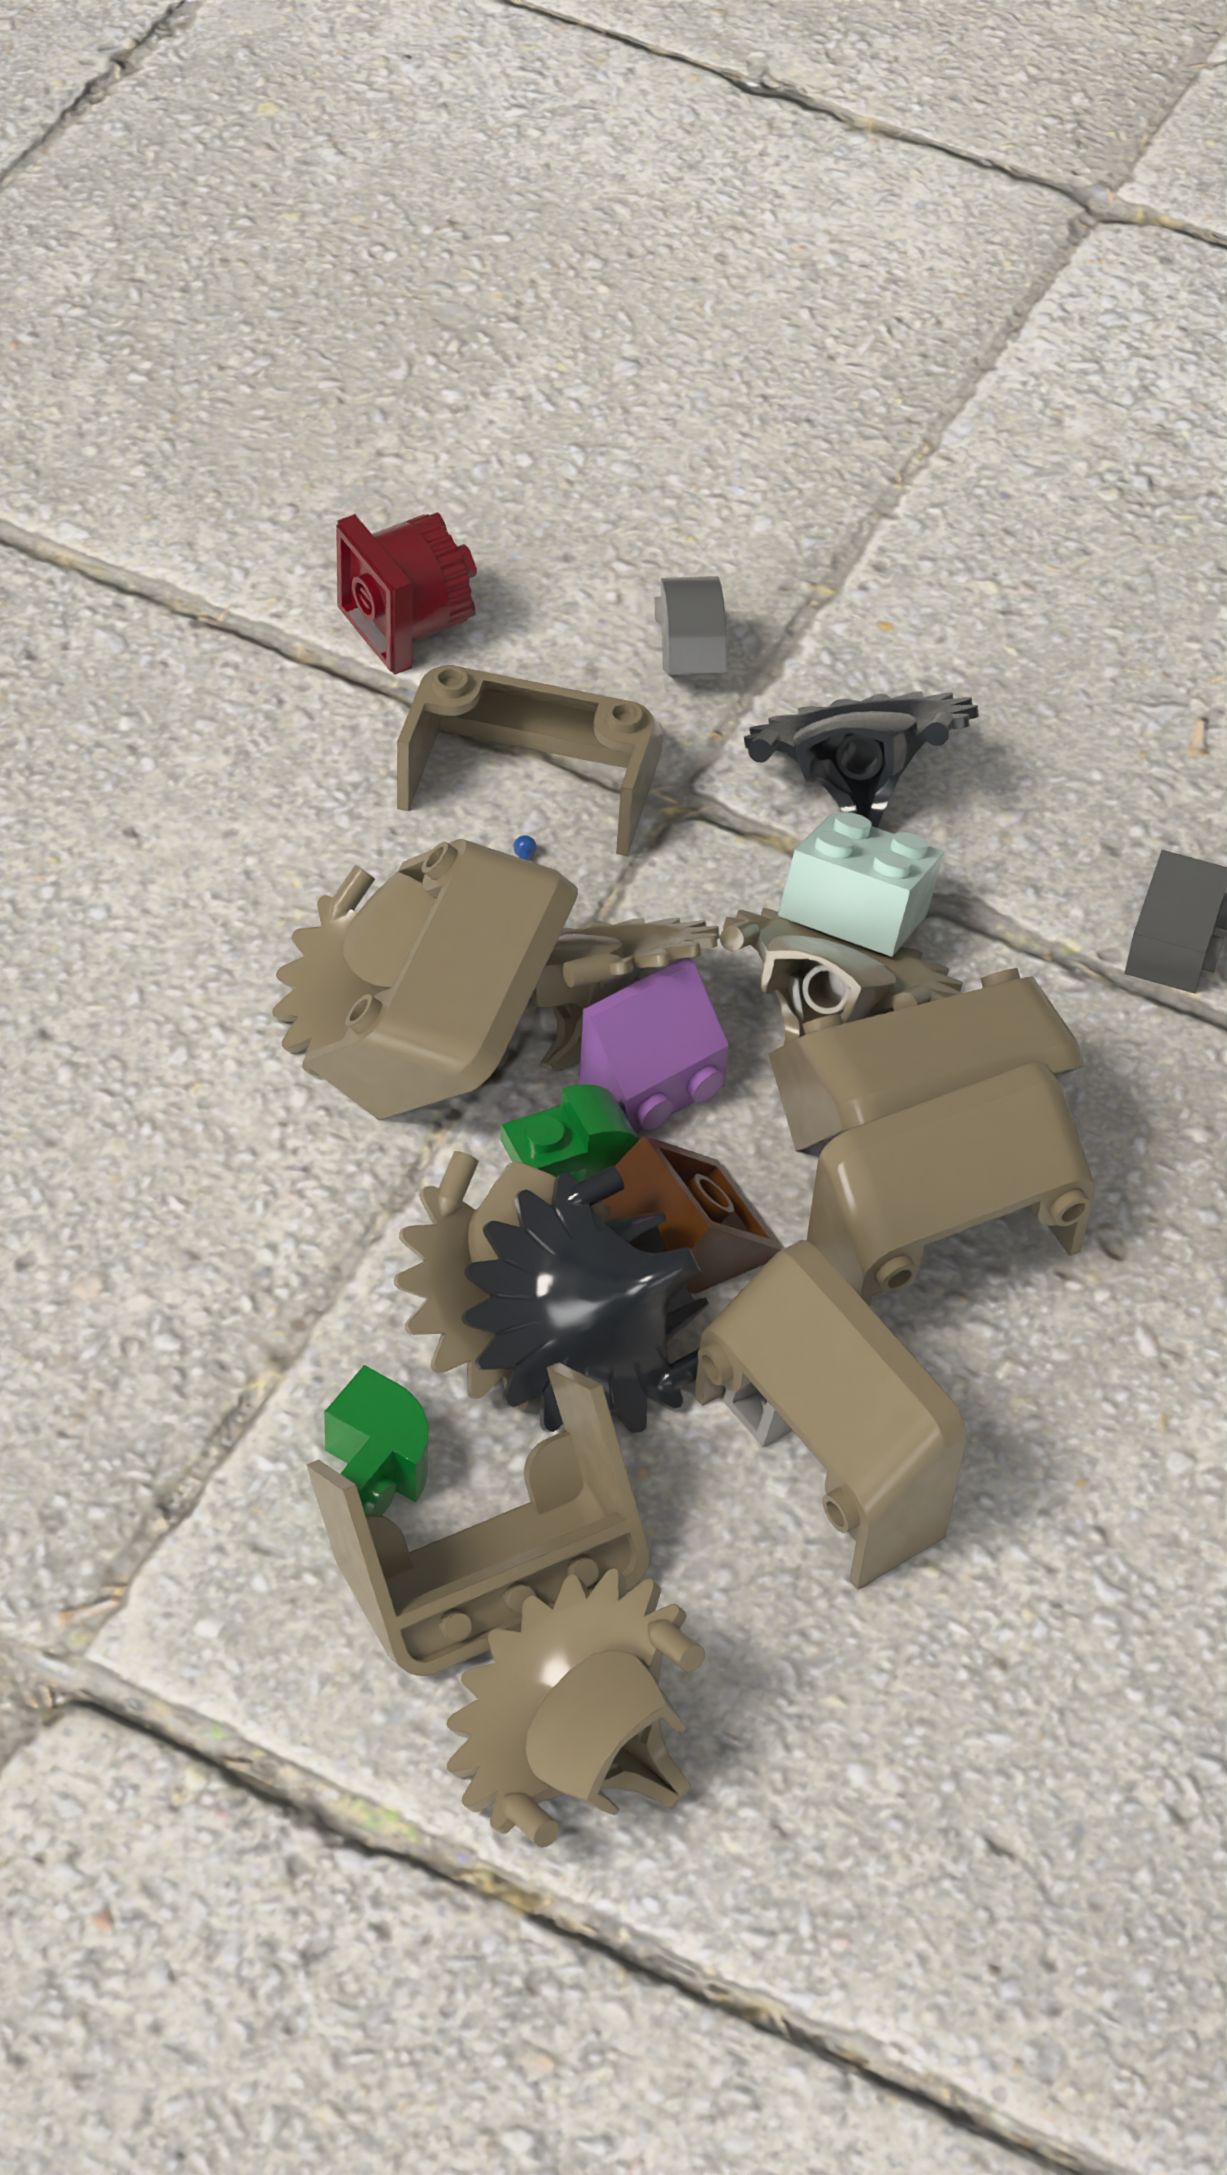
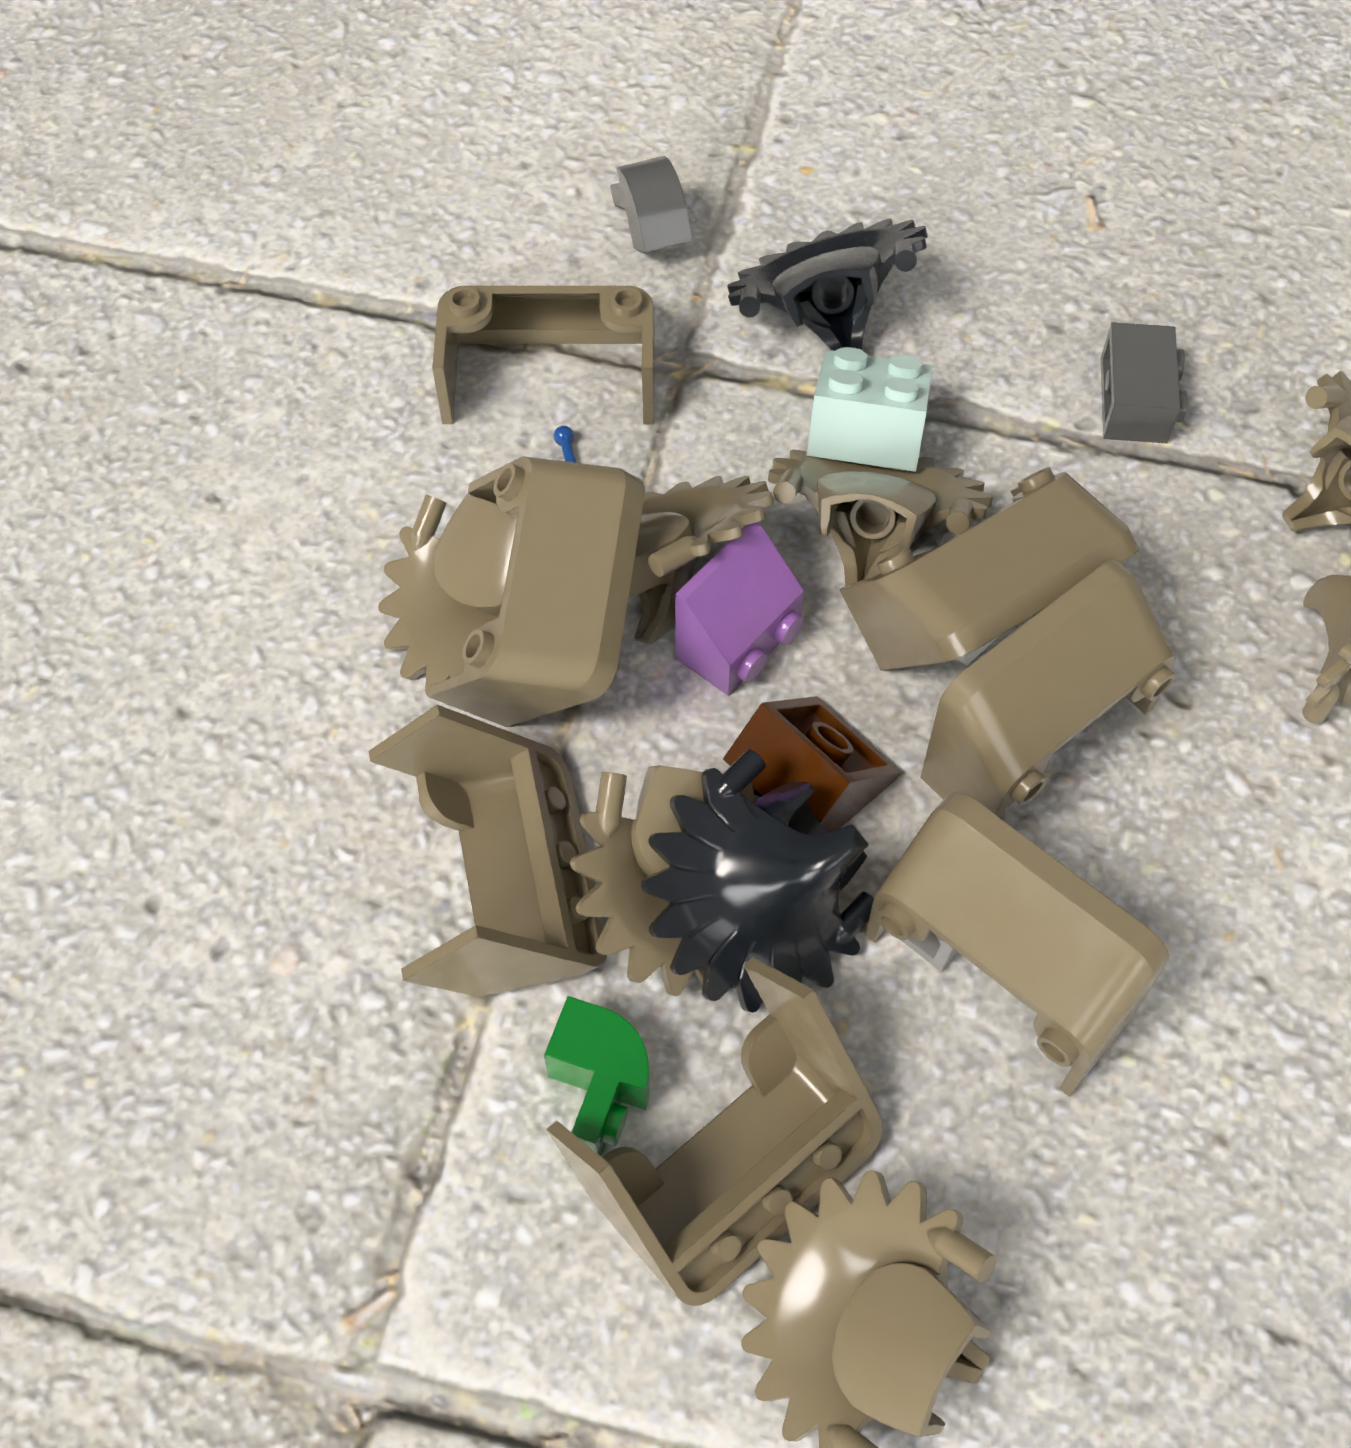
camera: 10 degrees left, 10 degrees up
(355, 1193) = (517, 844): none -> dark tan windscreen
(402, 583) = (394, 218): dark red piece -> none
(572, 1138) = (699, 713): green brick -> none

